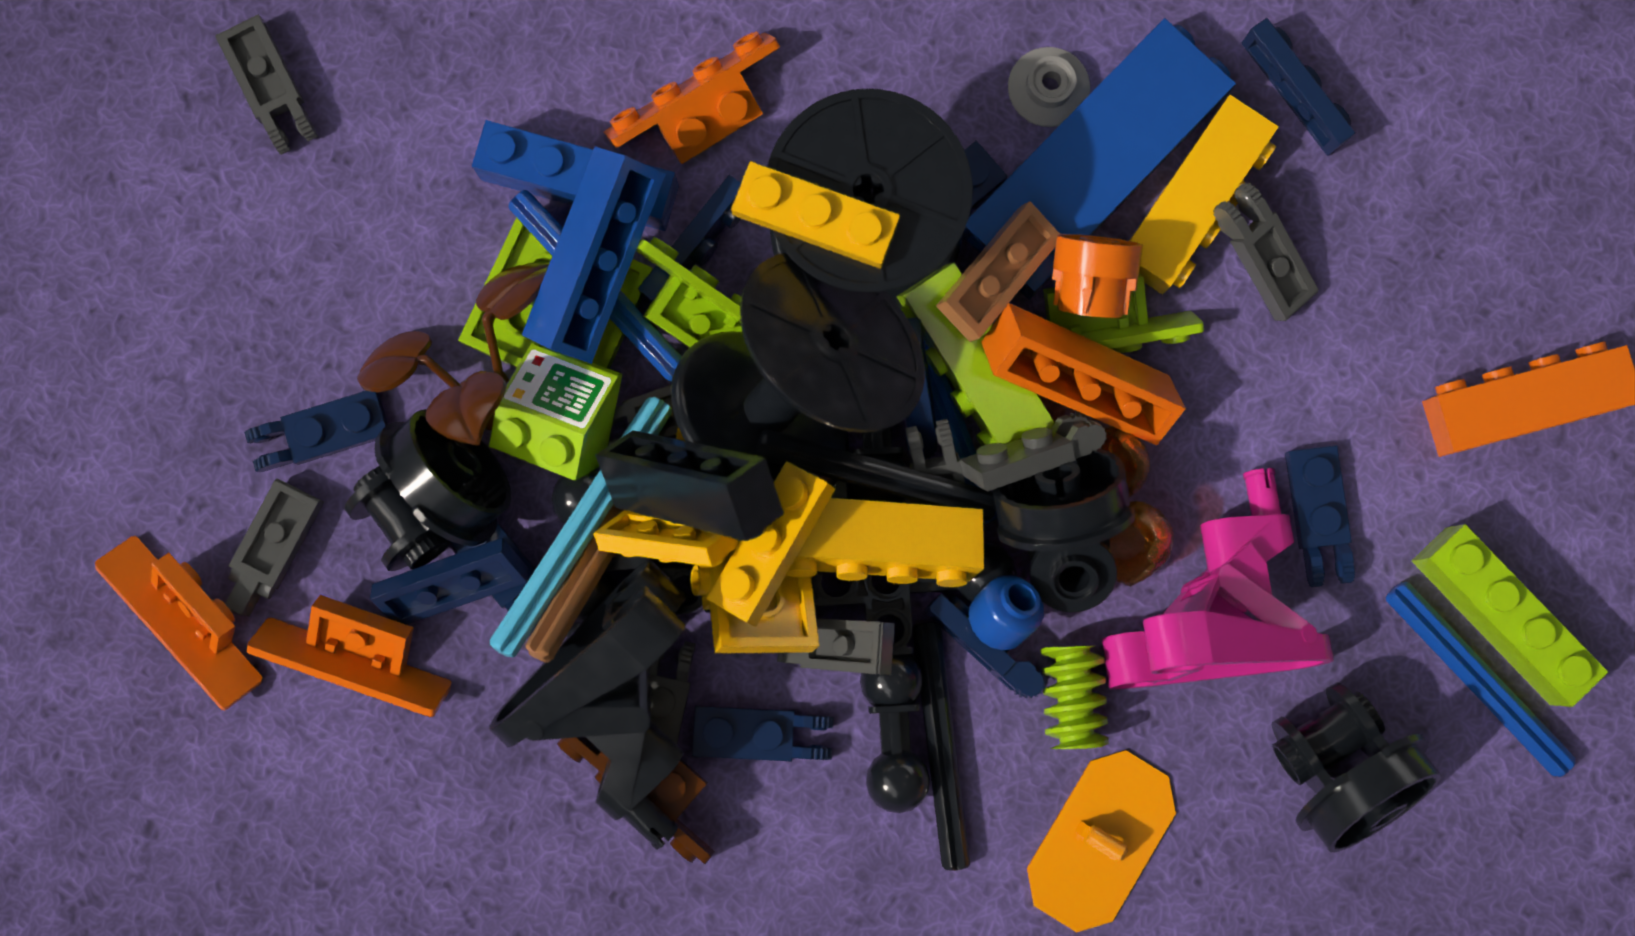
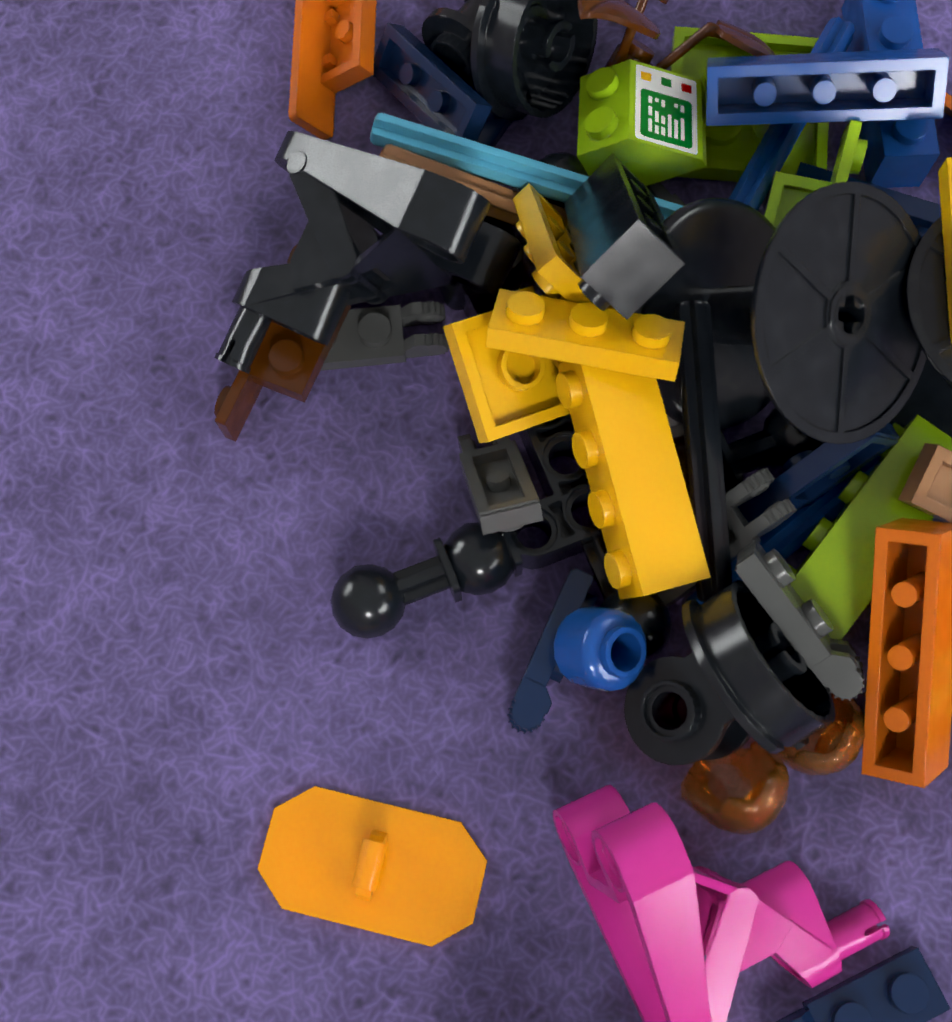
camera: 75 degrees right, 10 degrees down
(755, 734) = (372, 440): dark blue hinge -> none
(941, 747) = (421, 642): black axle -> none
(1075, 697) = (530, 771): lime piece -> none

